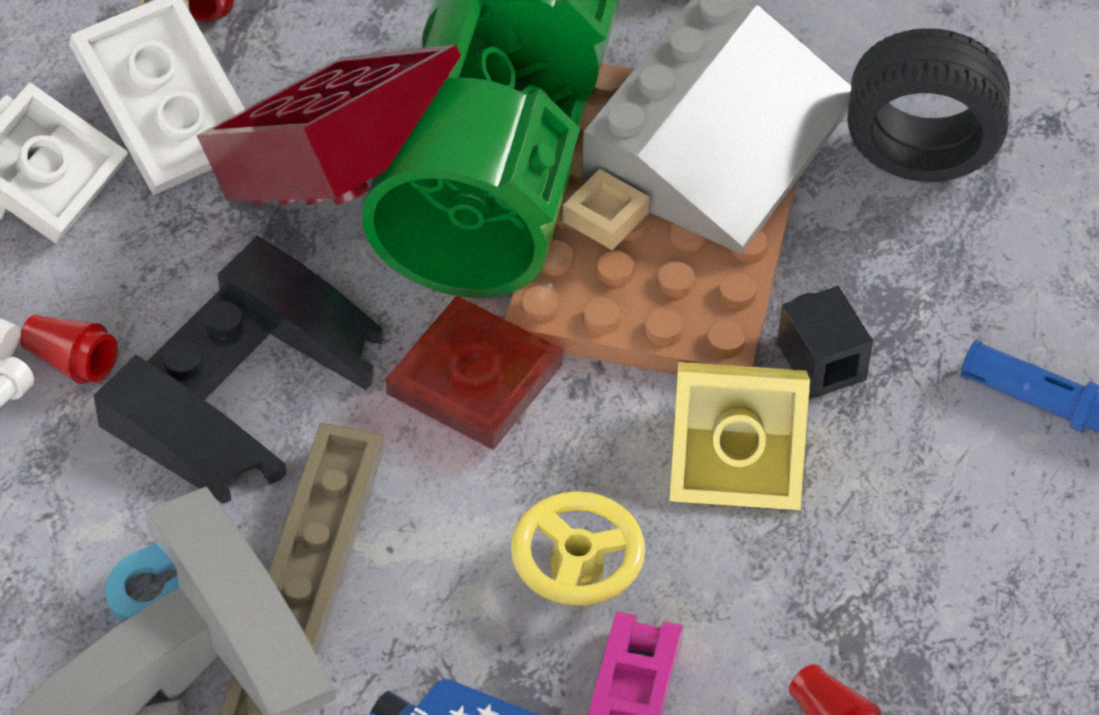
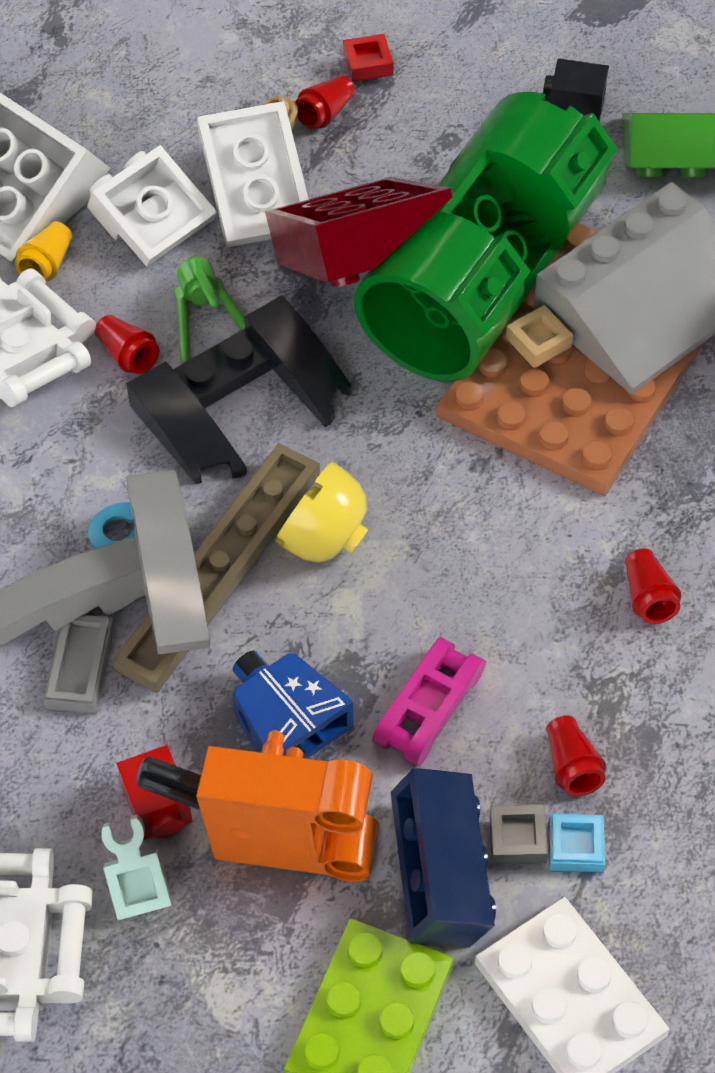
camera: 20 degrees right, 5 degrees up
(141, 251) = (200, 287): none -> bright green plant
(420, 499) = (326, 518): none -> light yellow cylinder
(474, 372) = (404, 433): clear red plate -> none
(577, 553) = (422, 606): light yellow piece -> none
(739, 436) = (578, 529): light yellow slope -> none
(825, 339) = (670, 476): black brick -> none
(852, 482) = (651, 588): none -> red cone

